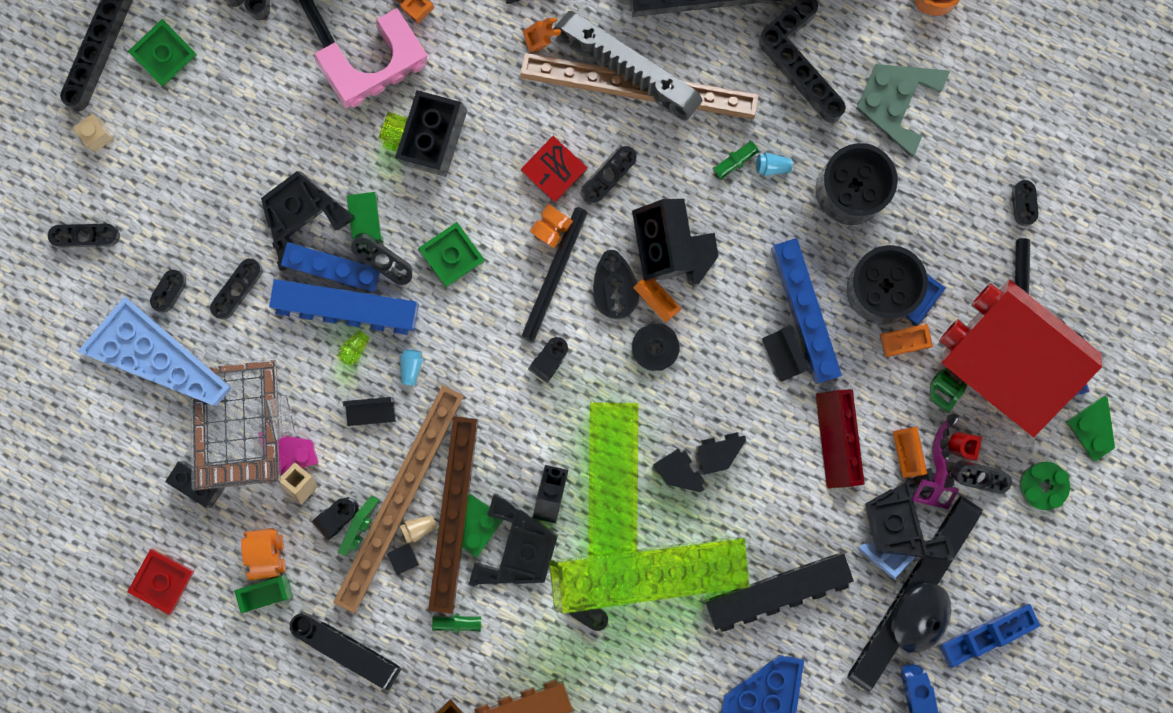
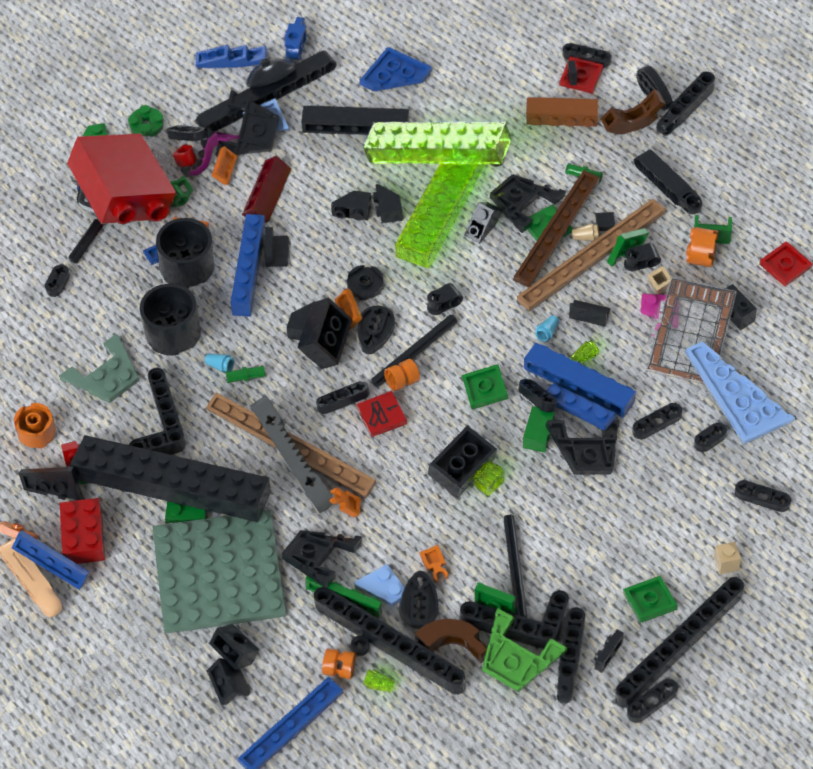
camera: 155 degrees left, 30 degrees down
(352, 85) = (460, 522): bright pink arch -> none

